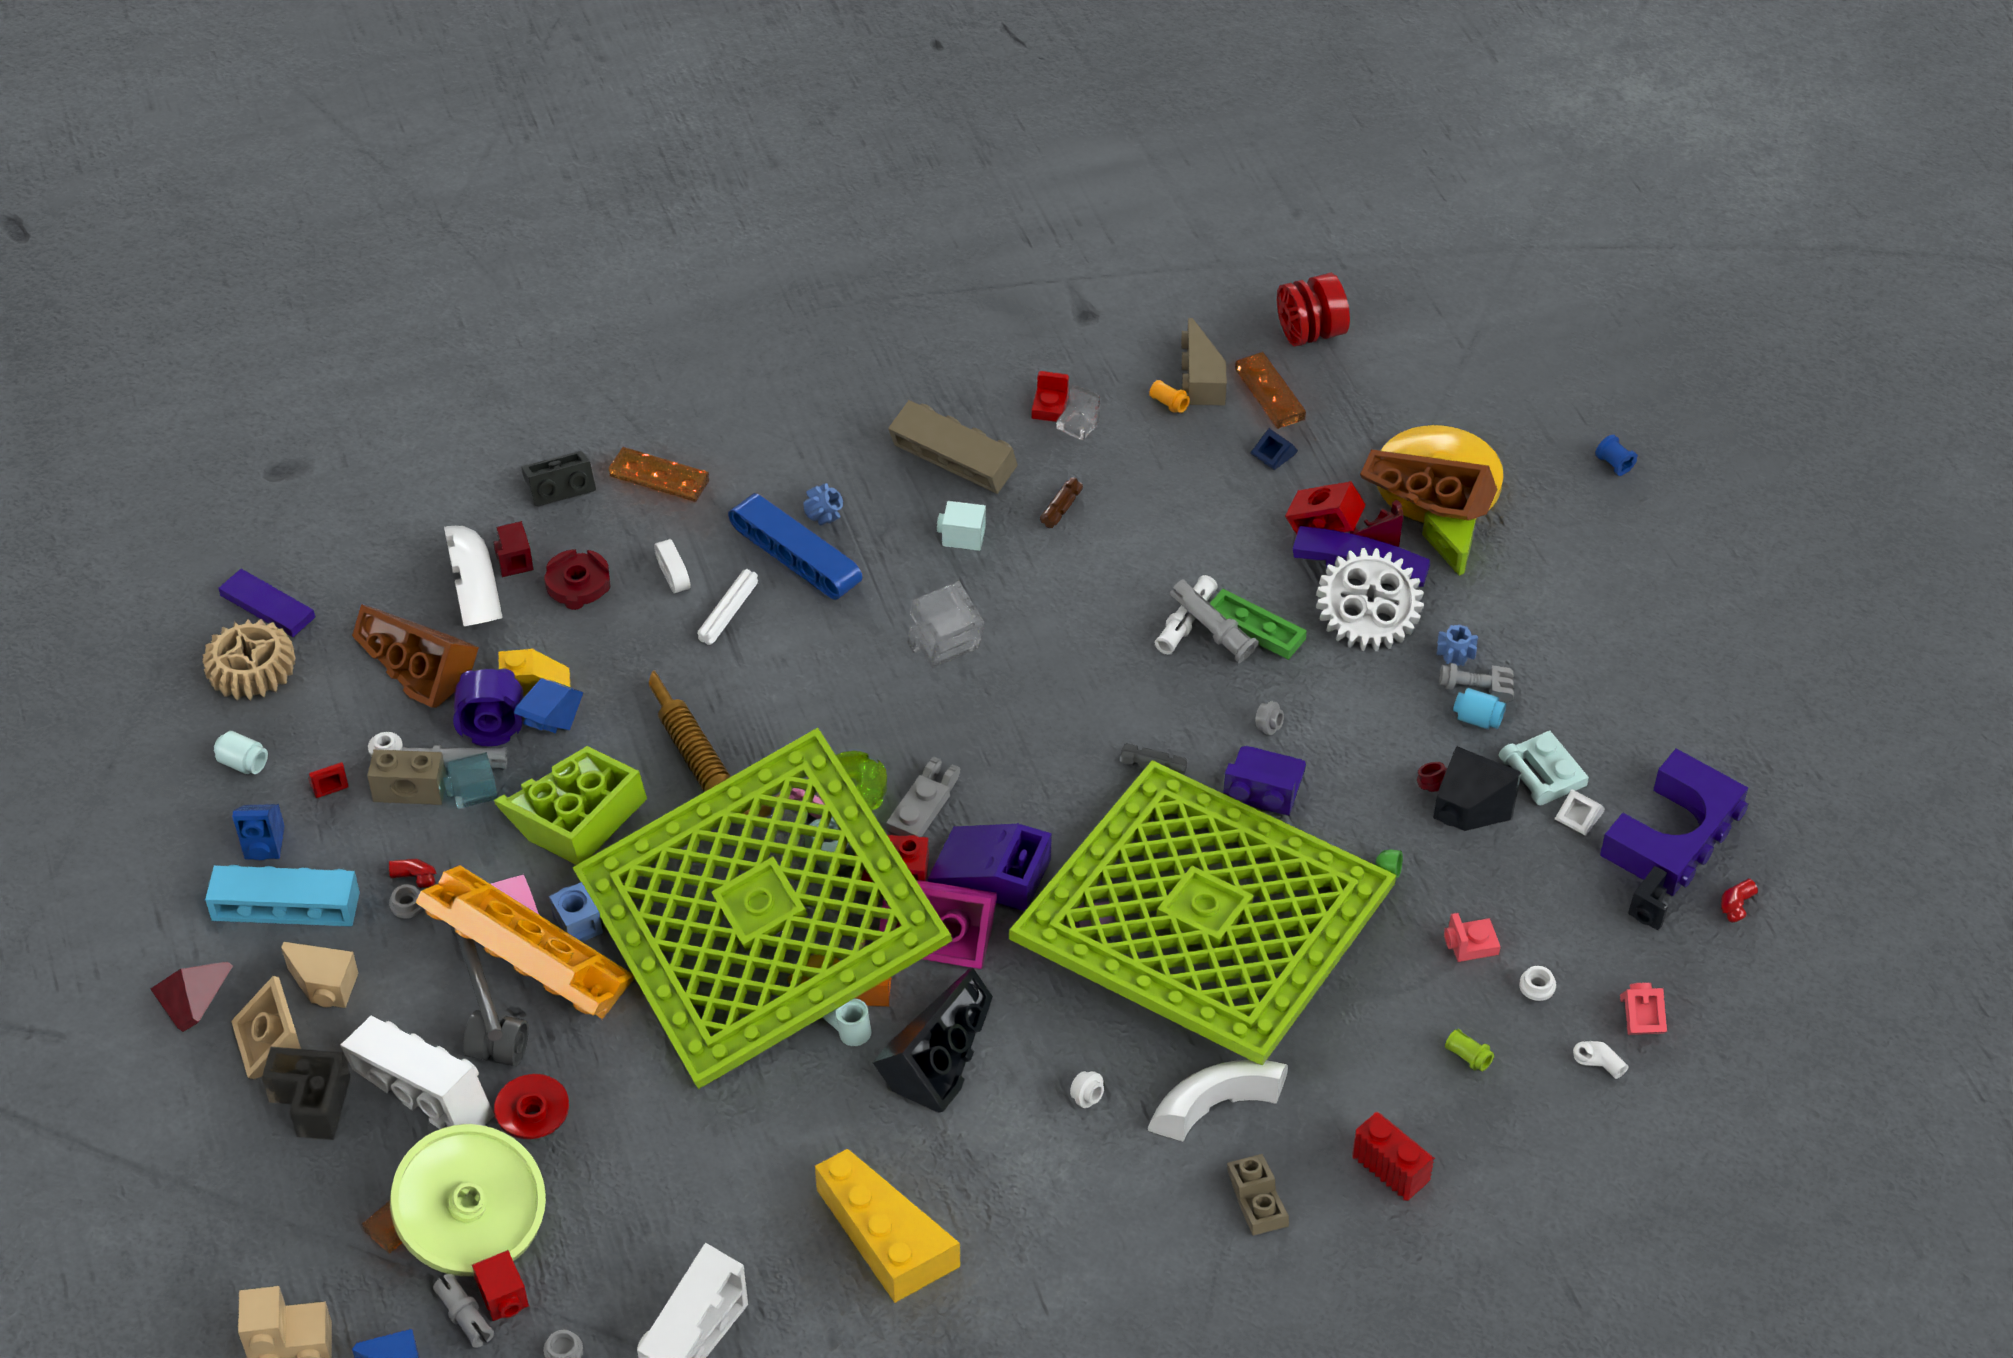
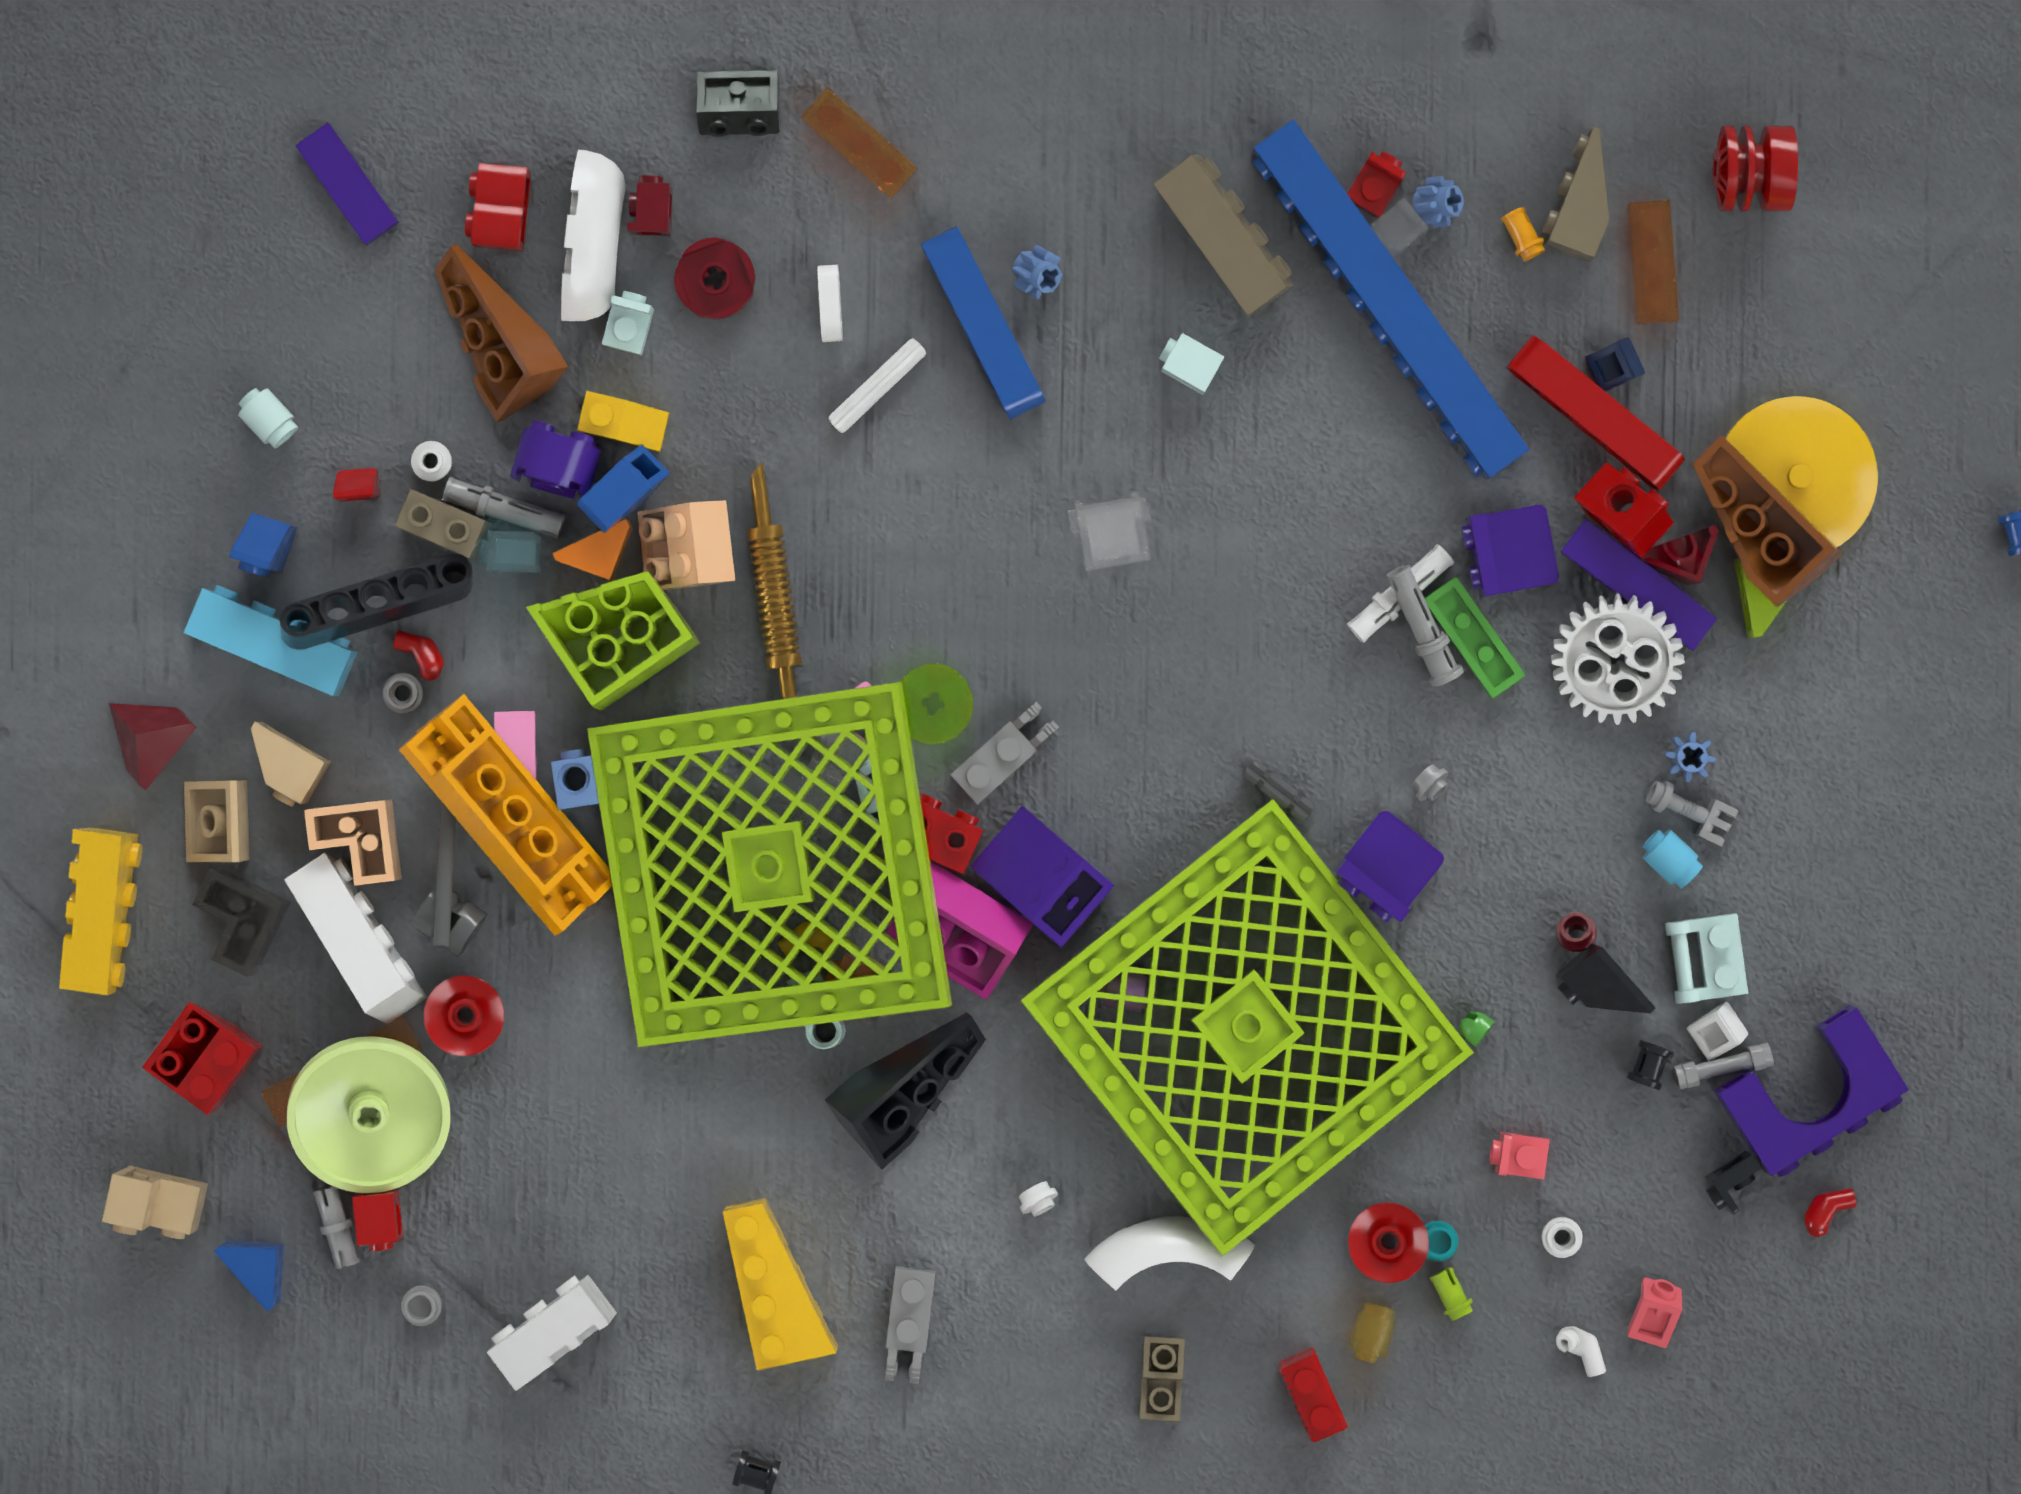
camera: 25 degrees right, 40 degrees up
(176, 1119) = (99, 910): none -> yellow wedge
(229, 655) = (303, 257): tan gear -> none
(302, 1206) = (202, 1057): none -> red slope
(365, 831) = (364, 617): none -> black beam
(393, 579) = (499, 207): none -> red brick
(397, 993) = (367, 830): none -> light nougat brick
(517, 619) = (628, 323): none -> light aqua bracket
(536, 758) = (599, 552): none -> orange slope
(615, 728) = (687, 544): none -> light nougat slope
(1015, 1219) = (909, 1319): none -> light grey hinge
(1061, 502) = (1324, 361): reddish brown axle -> none
(1095, 454) = (1389, 300): none -> blue brick
(1104, 386) = (1438, 201): none -> medium blue gear
(1254, 566) = (1510, 550): none -> dark purple bracket
(1264, 469) = (1595, 413): none -> red beam
(1394, 1012) = (1384, 1262): none -> red dish
(1418, 1096) = (1372, 1332): none -> clear yellow brick
(1438, 1017) = (1442, 1241): none -> teal plate
(1540, 843) = (1650, 1064): none -> black bush
(1576, 843) = (1756, 1057): none -> light grey bar

